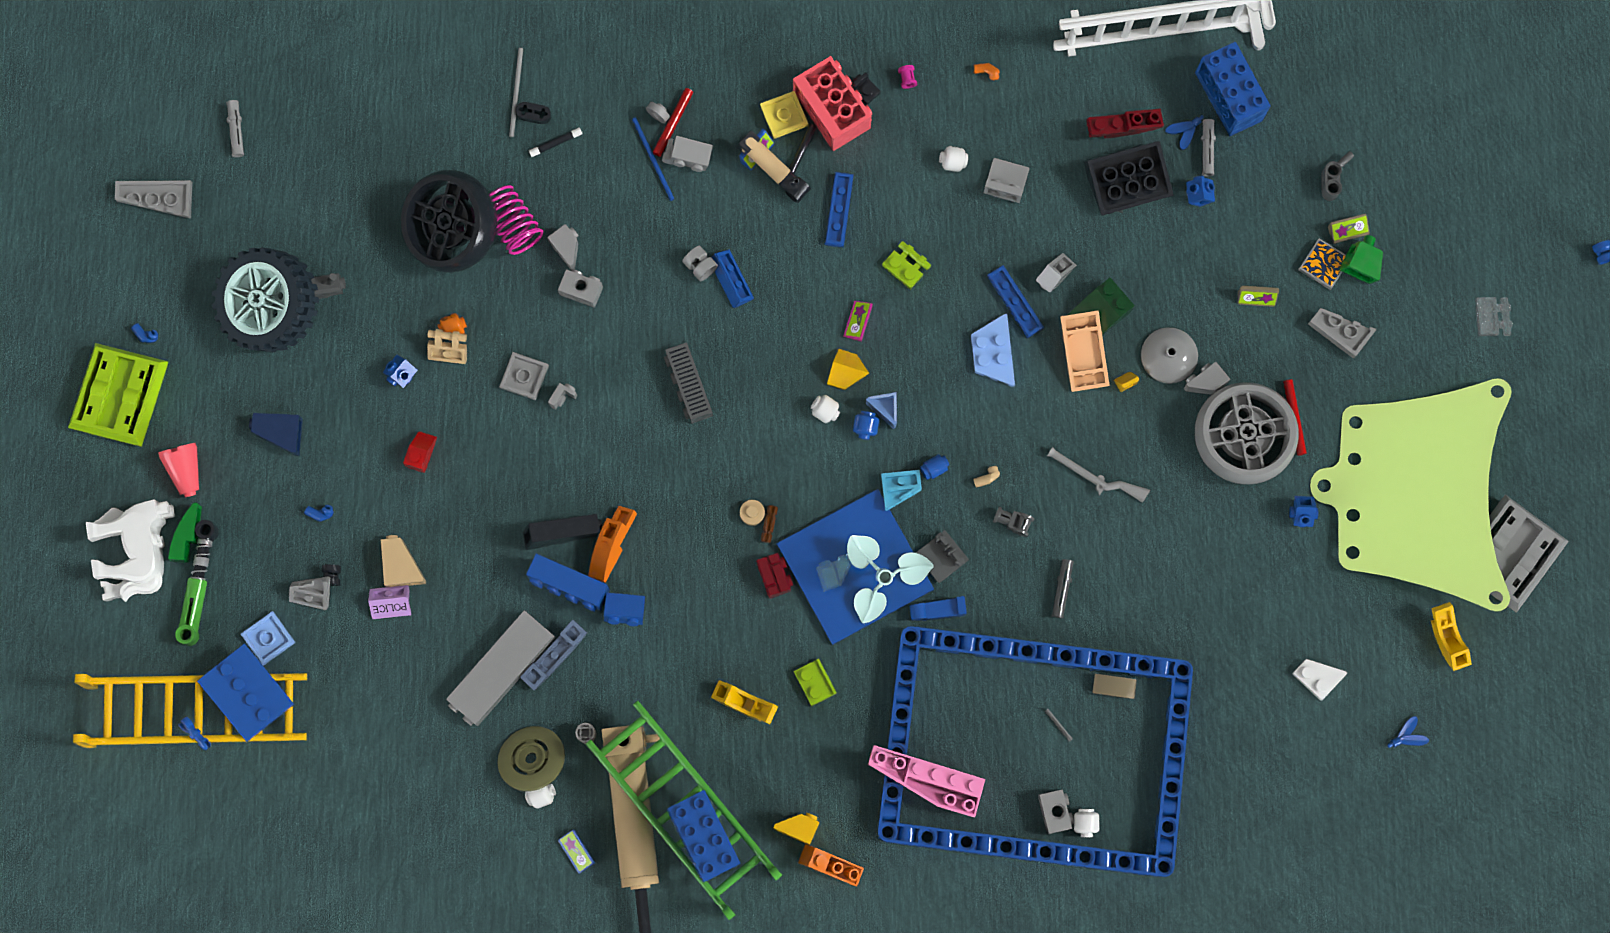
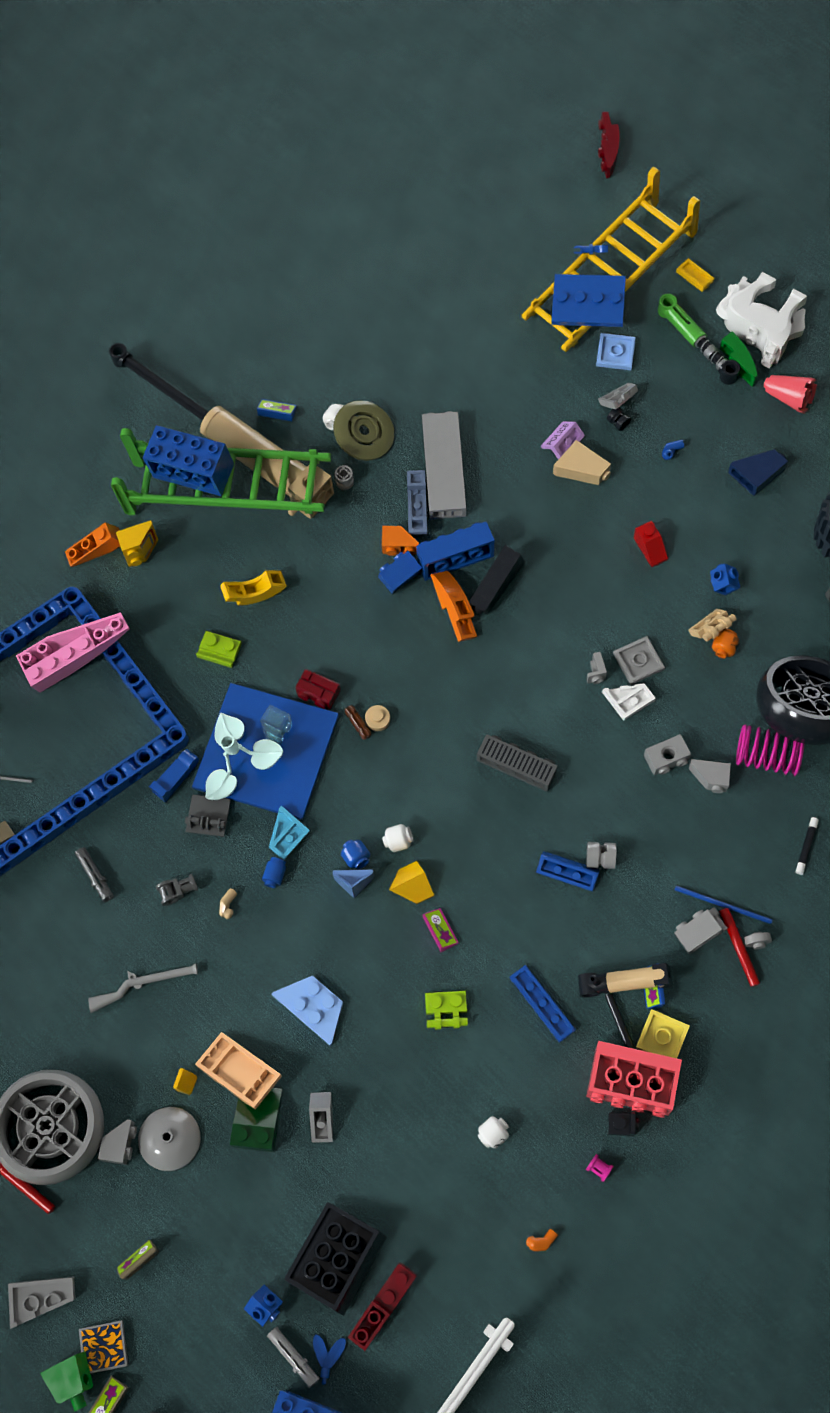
camera: 140 degrees right, 10 degrees down
(67, 827) = (609, 144): none -> dark red slope
(134, 641) = (695, 275): none -> yellow plate
(562, 353) = (629, 699): none -> white wing
(600, 639) = (397, 540): none -> orange slope
(1006, 180) = (434, 1157): light grey bracket -> none
(1015, 301) = (333, 1063): blue tile -> none

